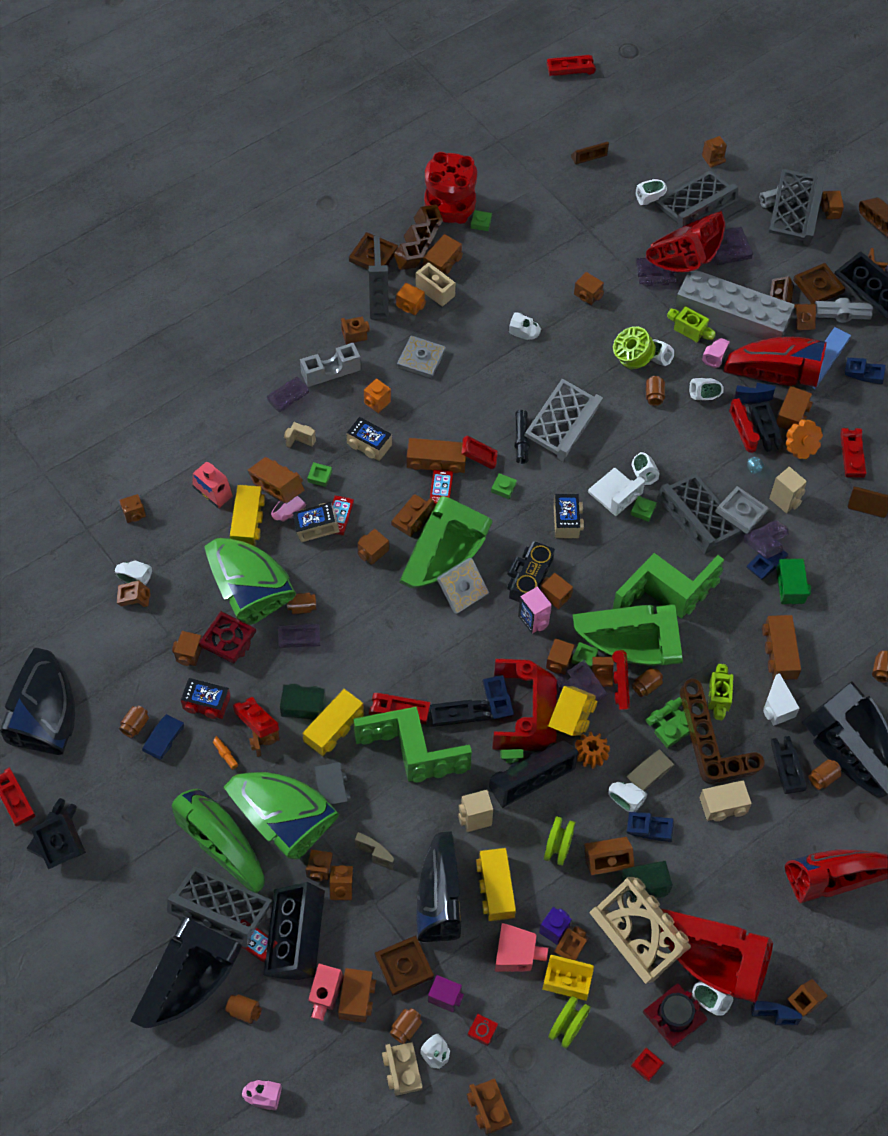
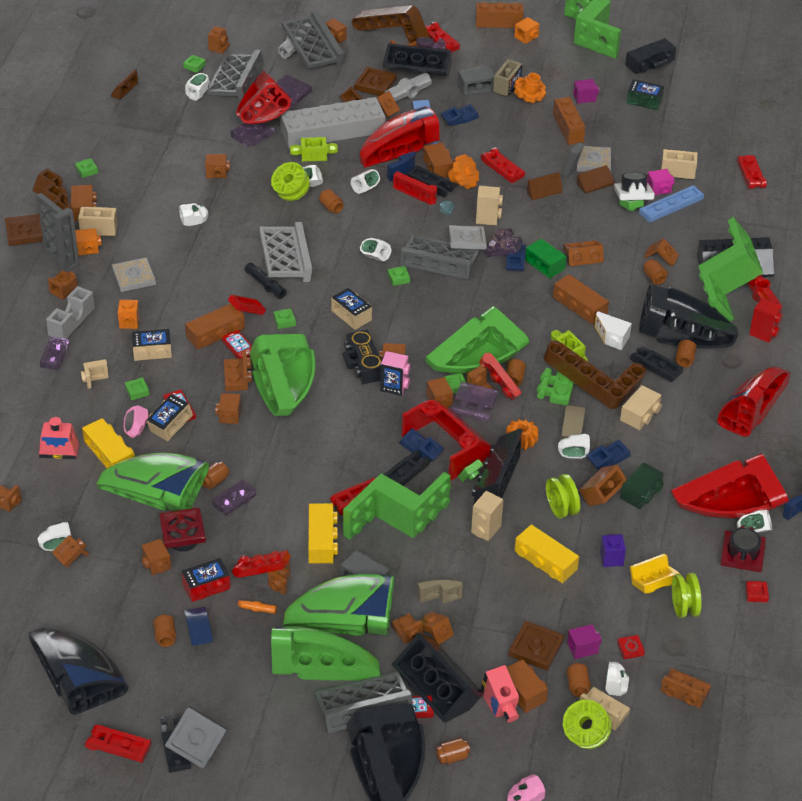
camera: 40 degrees left, 15 degrees down
(276, 479) = (111, 405): dark orange brick -> none
(302, 701) = (284, 534): clear green brick -> none
(353, 1073) = (596, 734): none -> lime wheel
(438, 893) = (516, 577): black panel -> none
(451, 186) = (47, 146): red wheel -> none
(463, 585) = (325, 390): light grey plate -> none
(517, 950) = (602, 582): coral torso -> none
(571, 65) = (51, 40): red plate -> none
(572, 943) = (634, 552): dark orange bracket -> none
(573, 711) = (492, 409): yellow brick -> none
(610, 924) = (646, 521): tan fence -> none
(616, 491) = (368, 275): white bracket -> none
(669, 585) = (467, 302): bright green bracket -> none
(671, 165) = (194, 63): none -> bright green plate
(715, 353) = (349, 157): bright pink rock -> none
(836, 598) = (584, 252): none -> dark orange bracket

